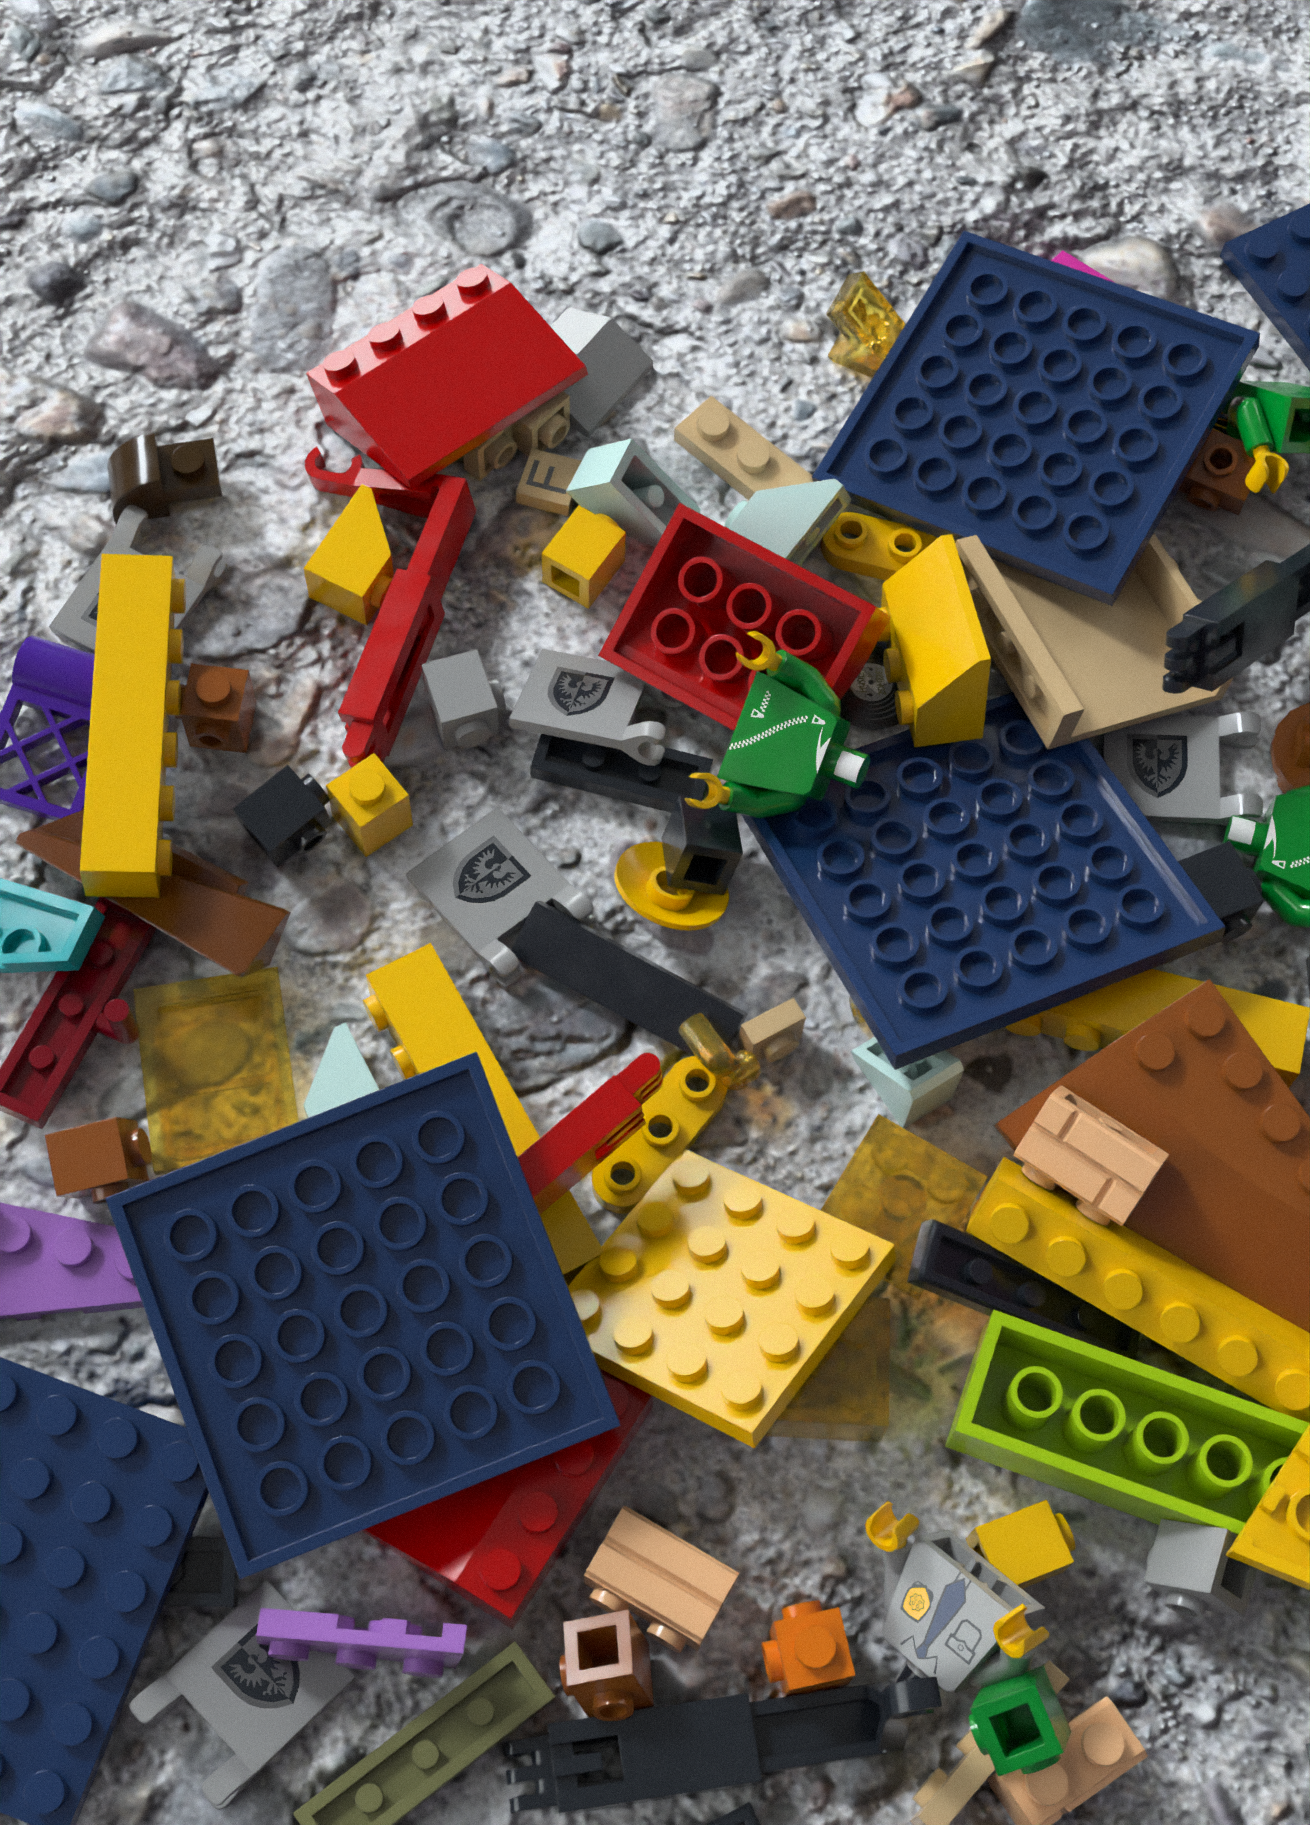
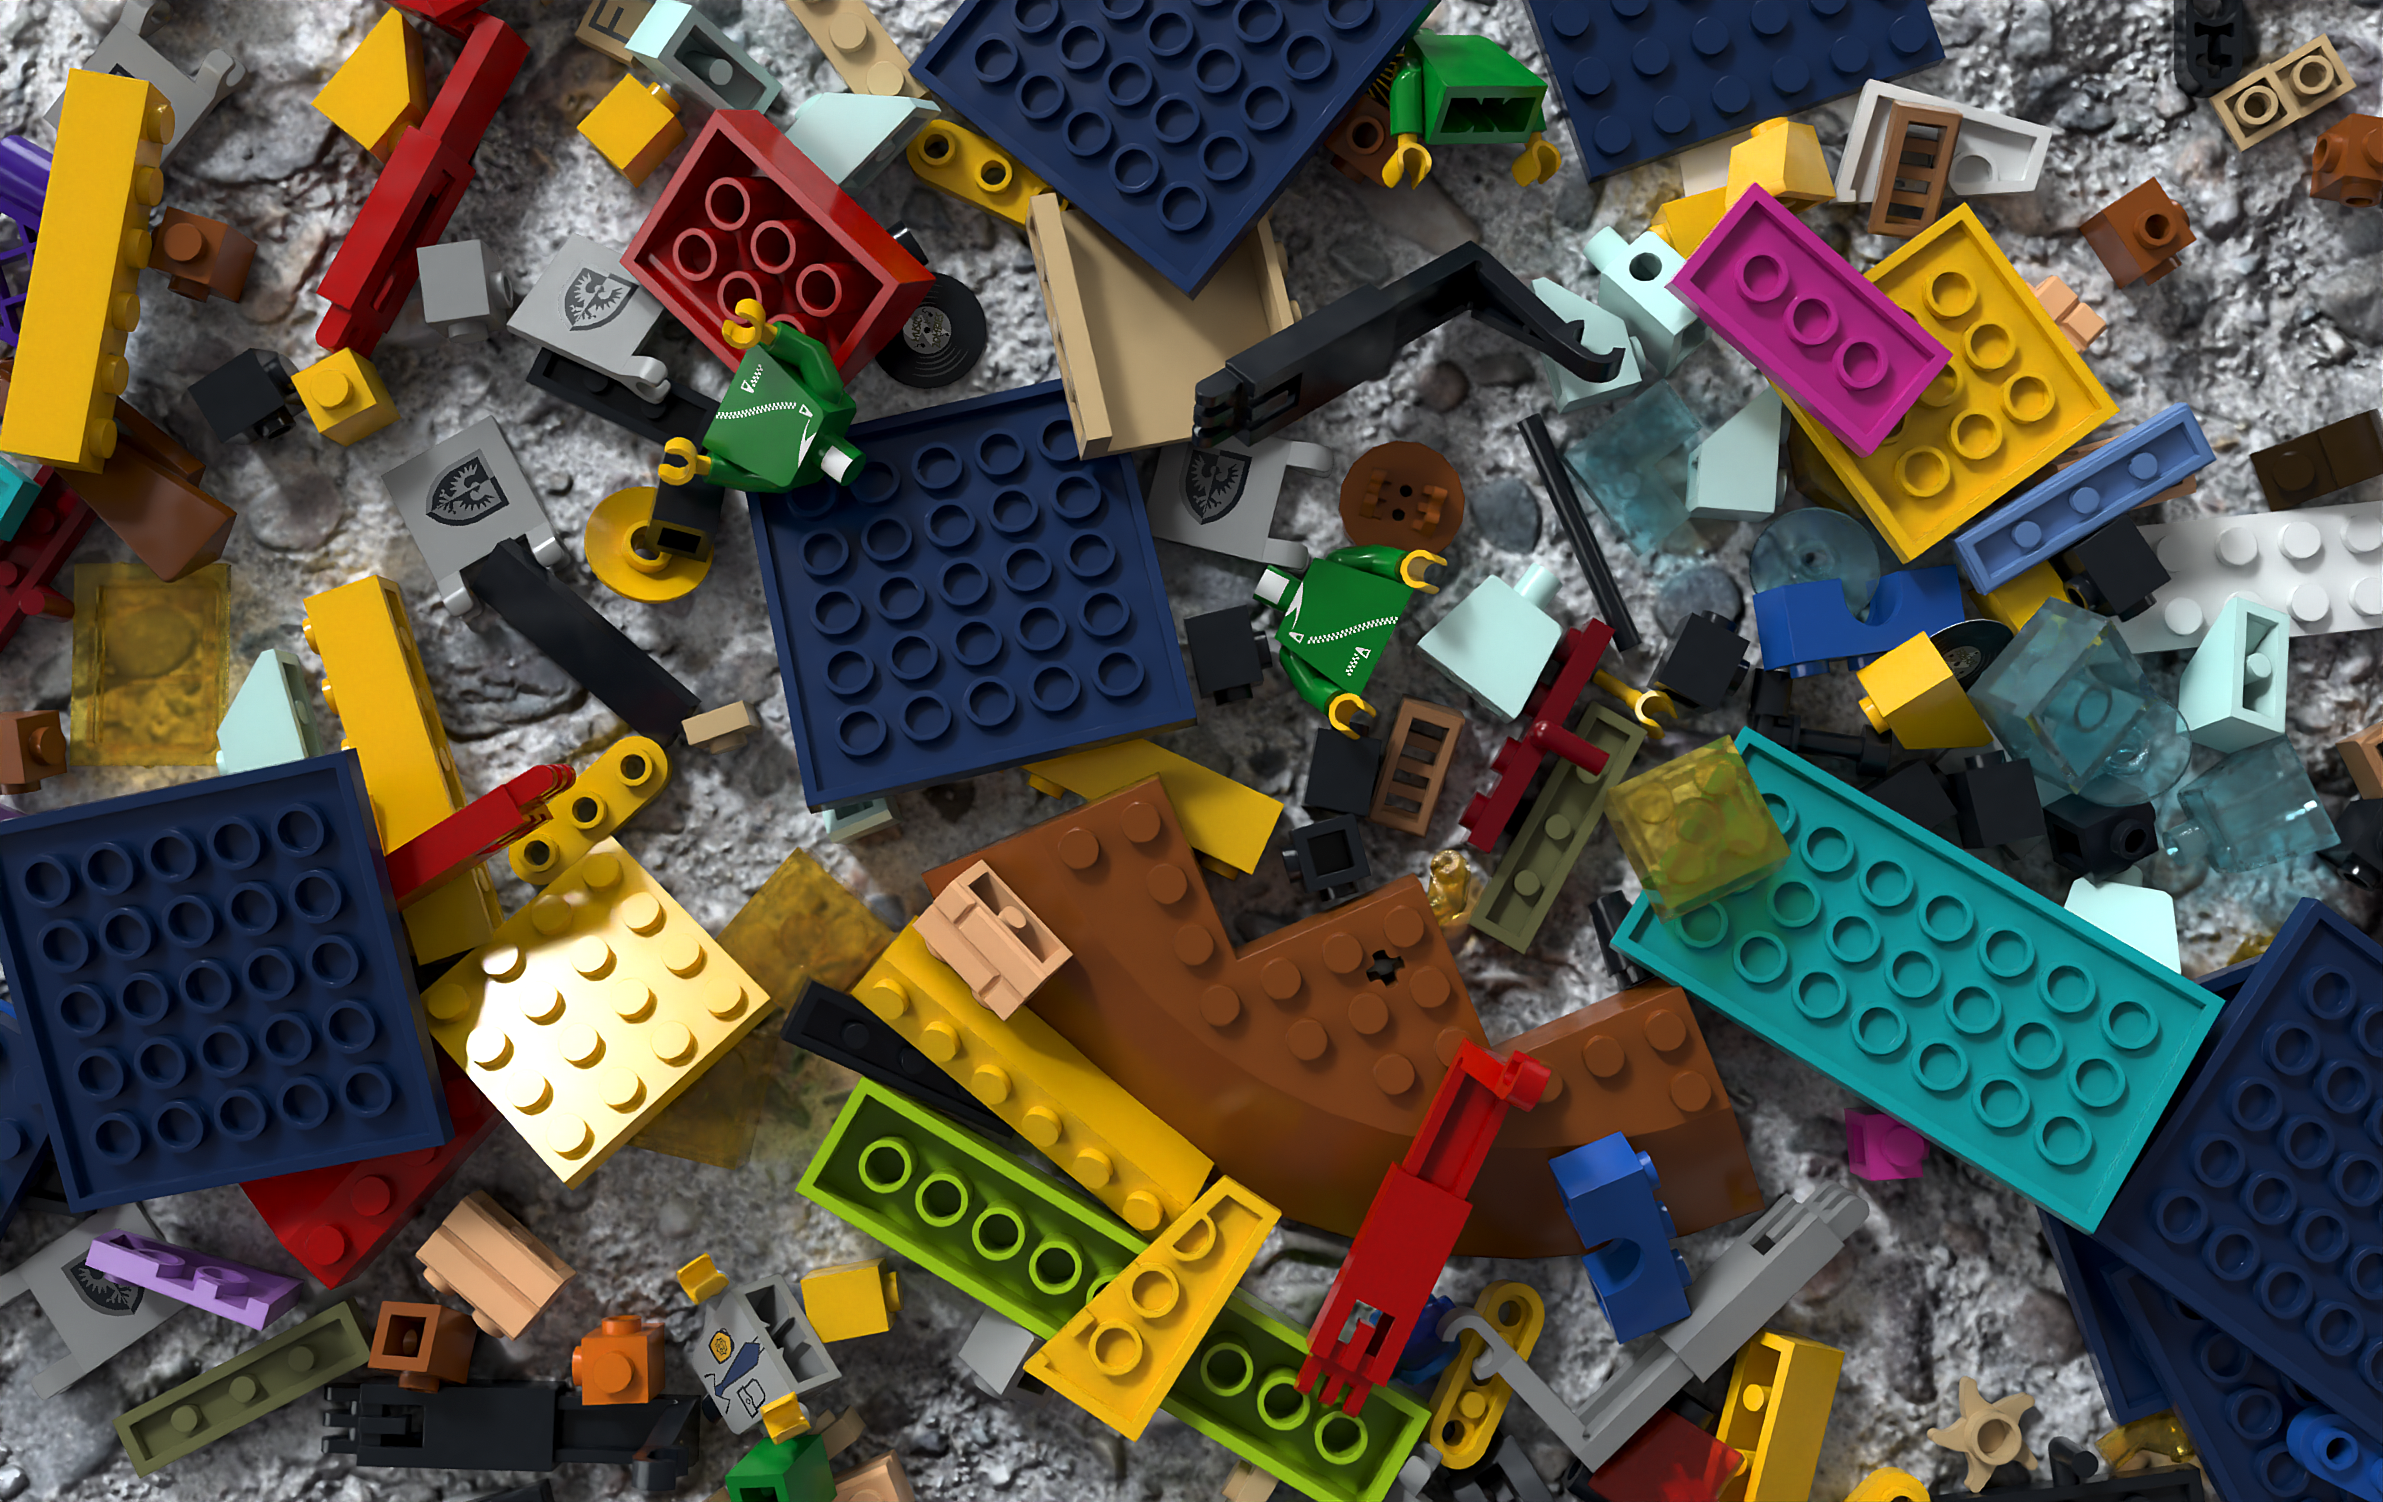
camera: 15 degrees right, 20 degrees up
(713, 1053) = (652, 746): clear yellow arm -> none
(935, 648) = (980, 320): yellow slope -> none

